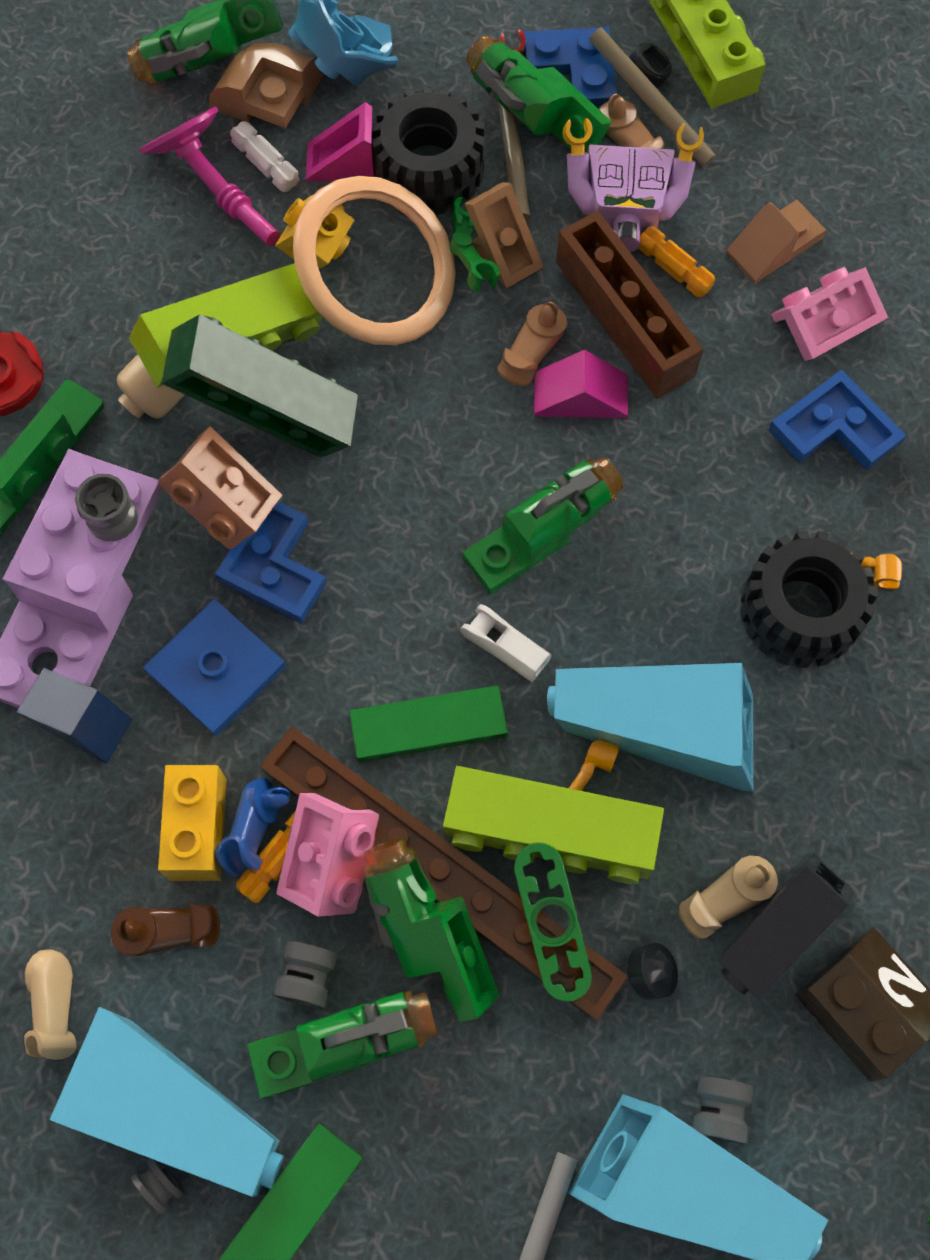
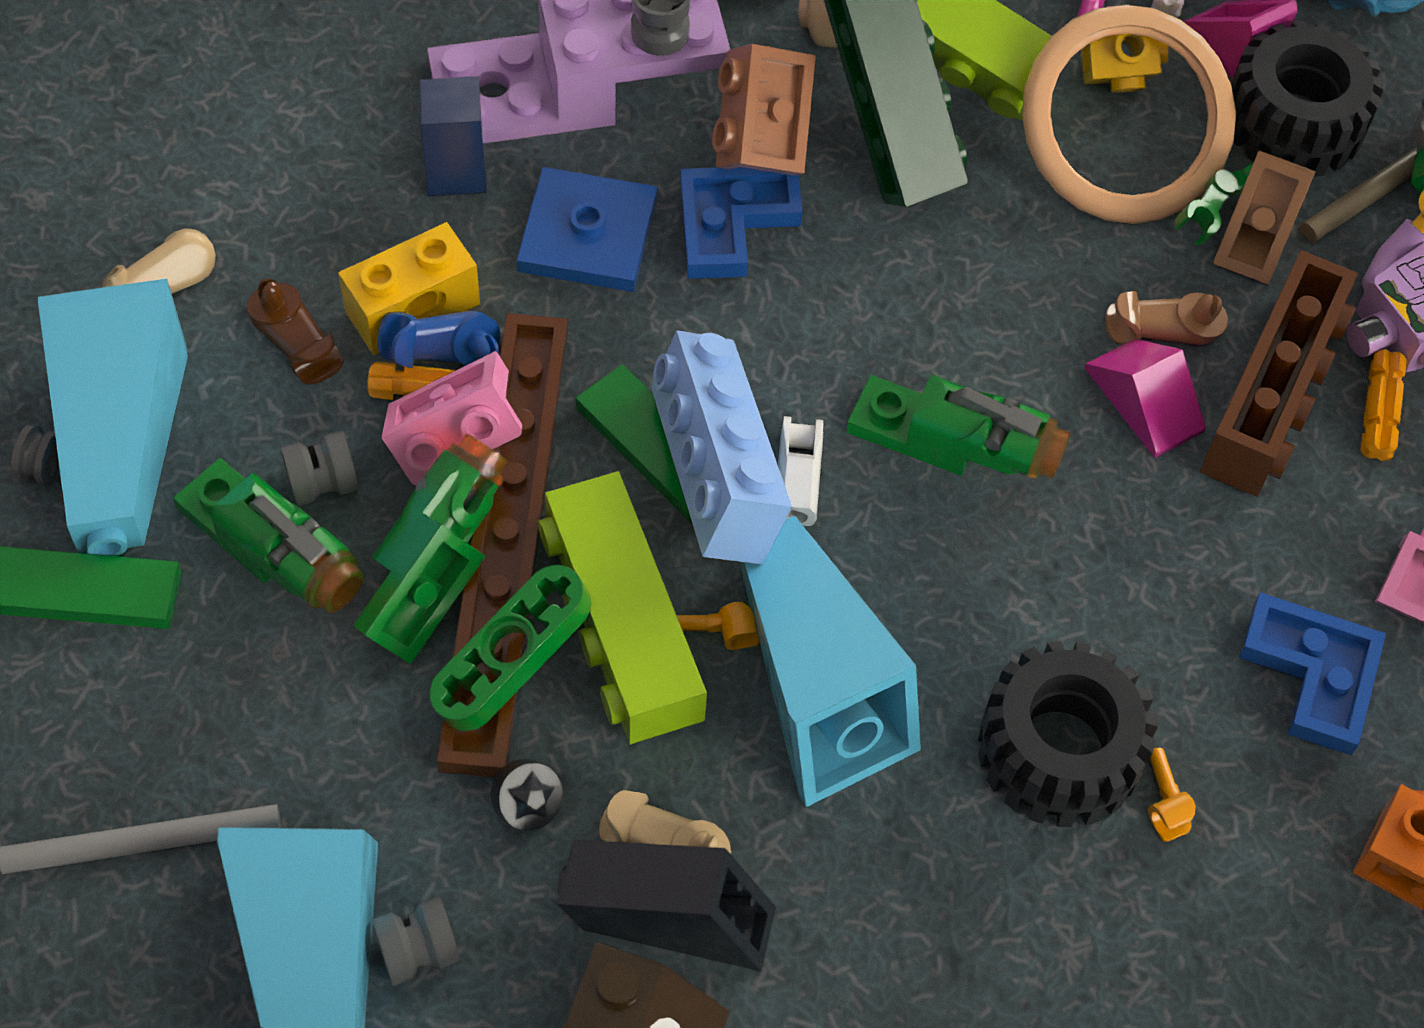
camera: 55 degrees right, 10 degrees down
(481, 686) = (719, 448): none -> light blue brick

